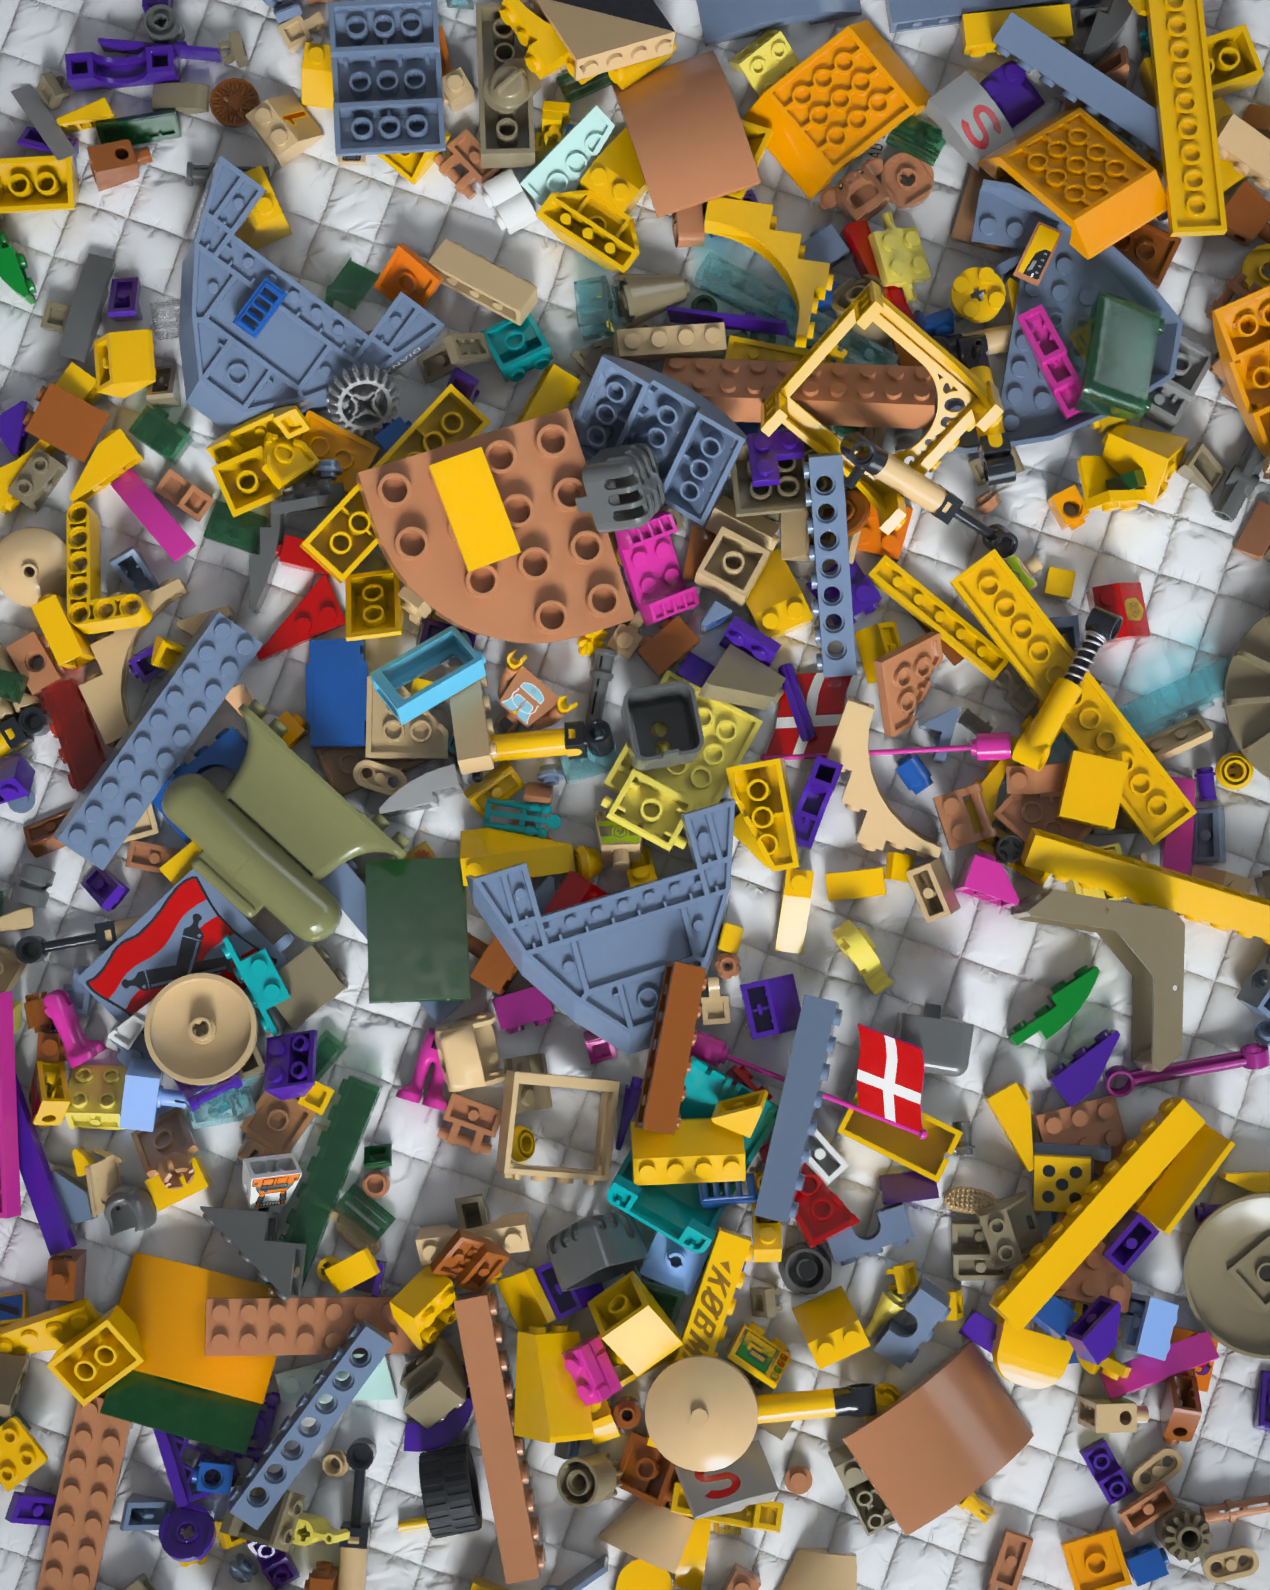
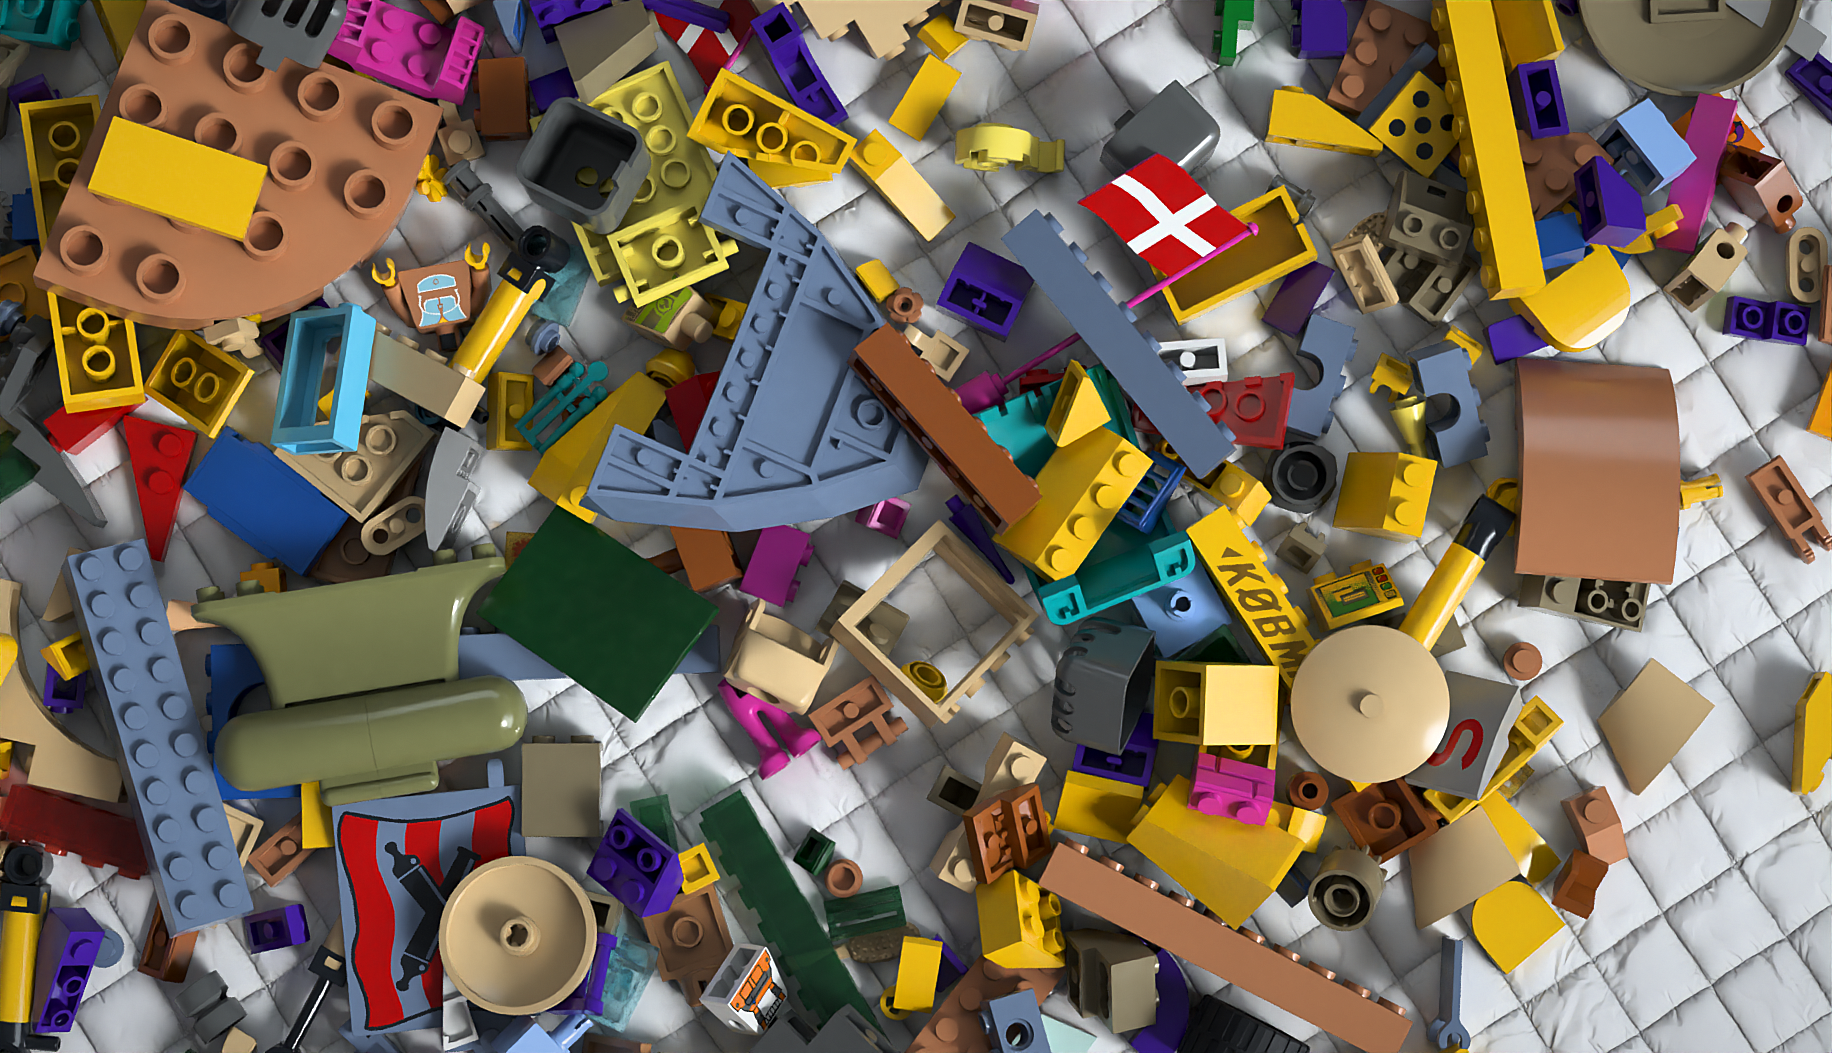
camera: 55 degrees left, 0 degrees up
(262, 980) = (516, 827): teal bracket -> none
(950, 1216) = (1364, 274): none -> tan plate

